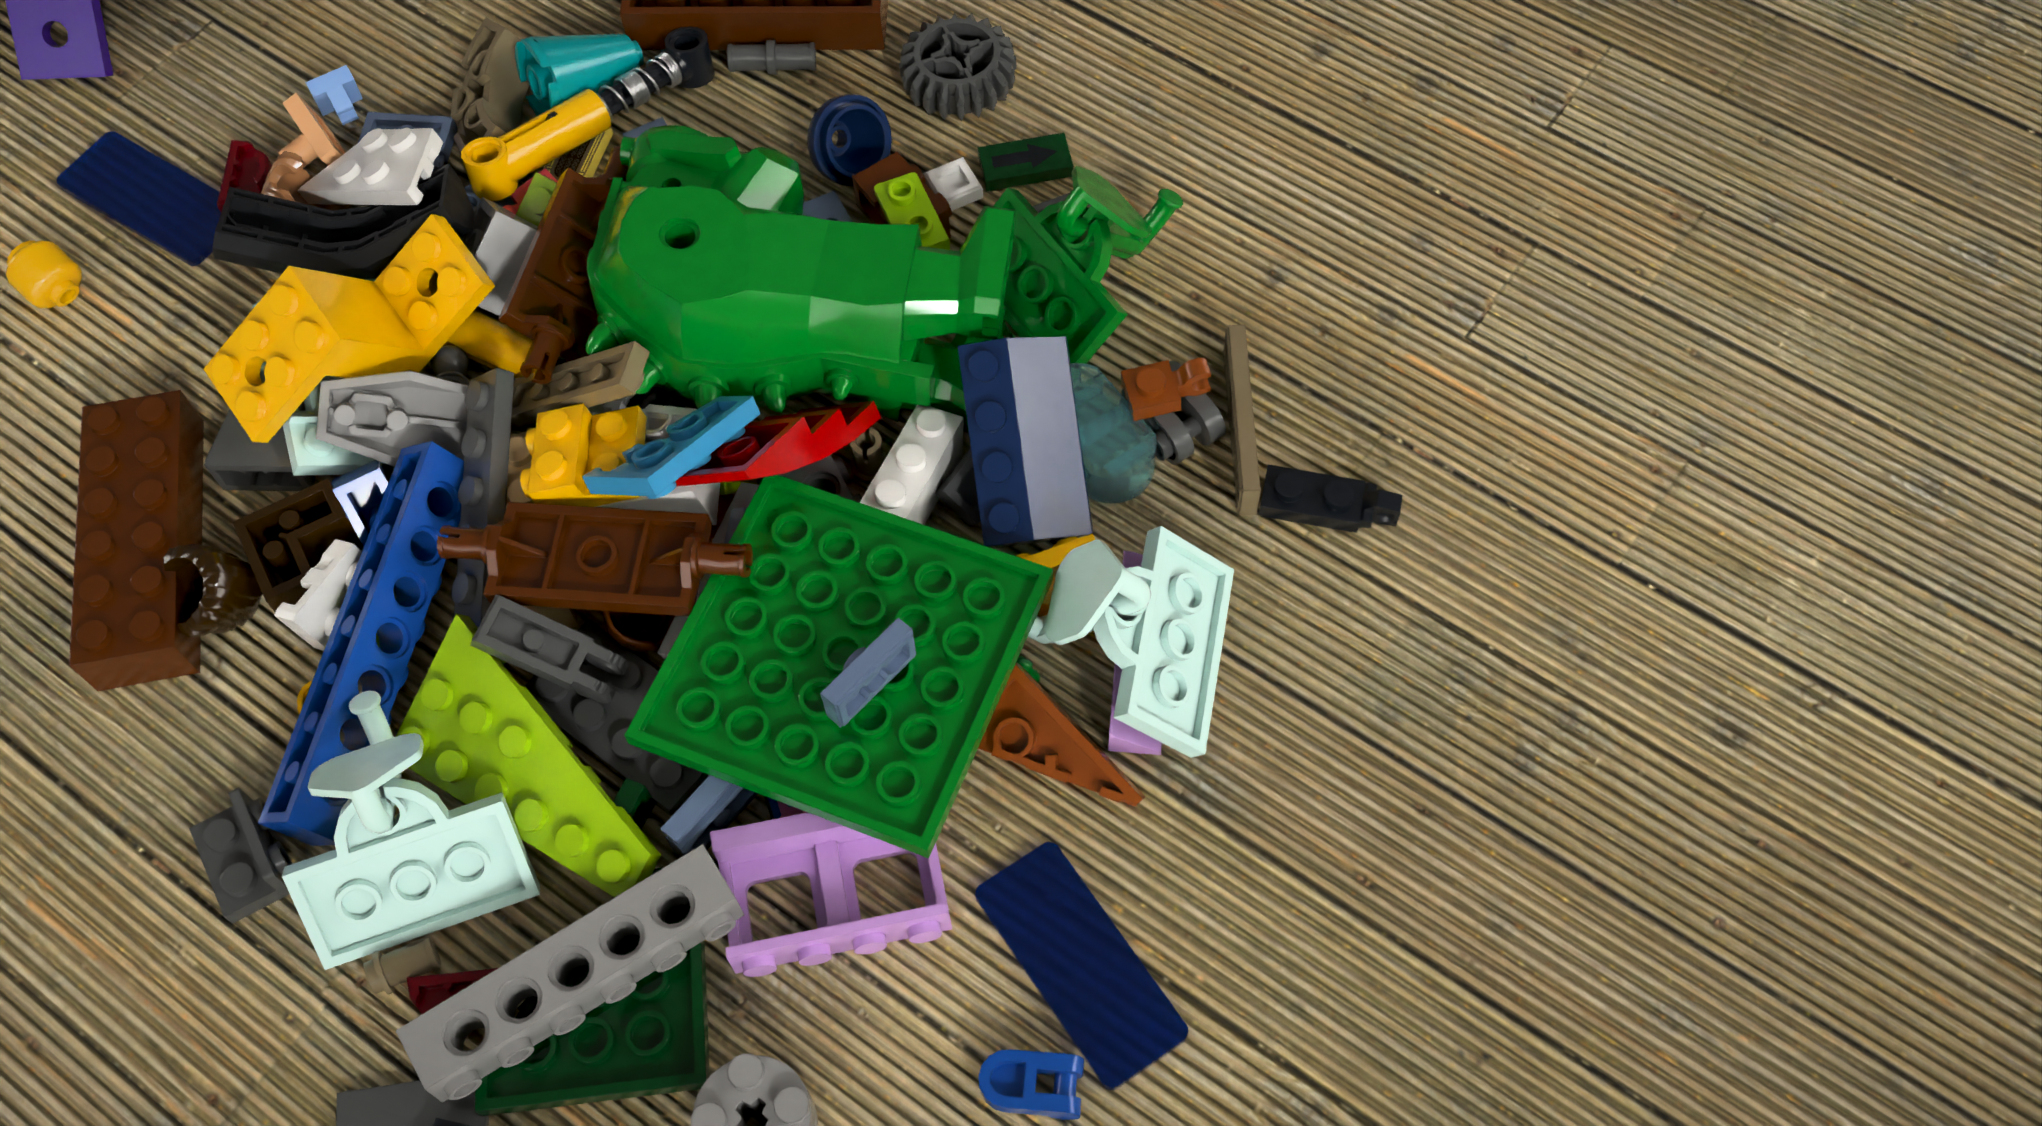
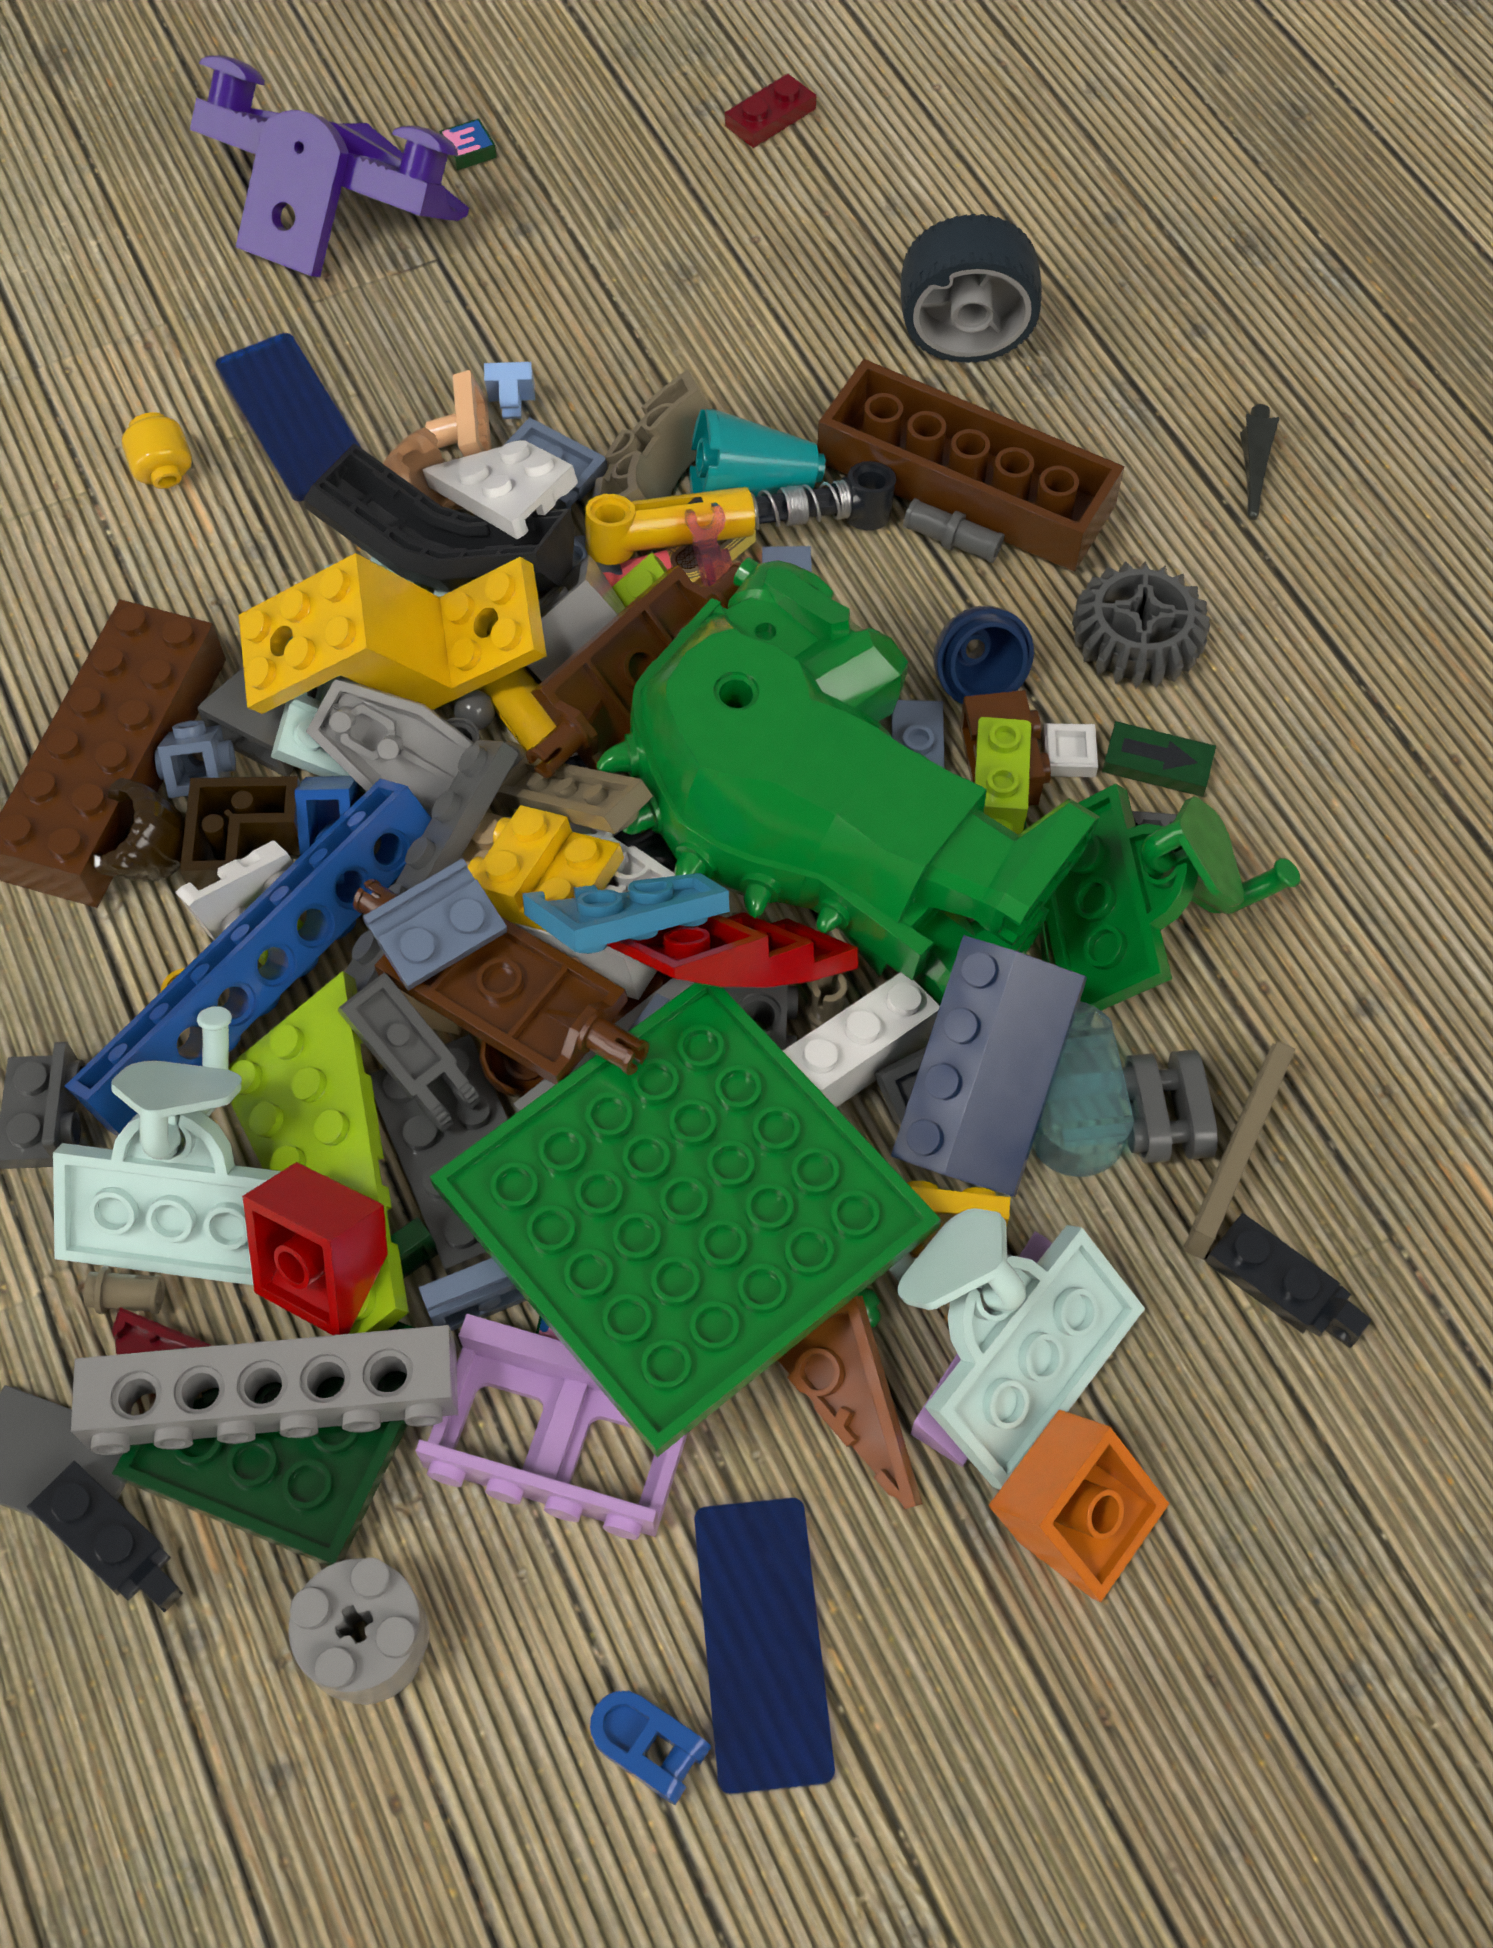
camera: 25 degrees right, 0 degrees up
(215, 524) = (177, 764): none -> sand blue brick
(244, 170) = (385, 427): dark red plate -> none
(520, 534) = (435, 924): none -> sand blue plate
(555, 839) = (314, 1246): none -> red slope
(587, 158) = (710, 559): none -> clear pink plate
(868, 672) = (693, 1235): sand blue plate -> none
(1158, 391) = (1158, 1076): dark orange plate -> none
(1263, 732) = (1080, 1502): none -> orange slope

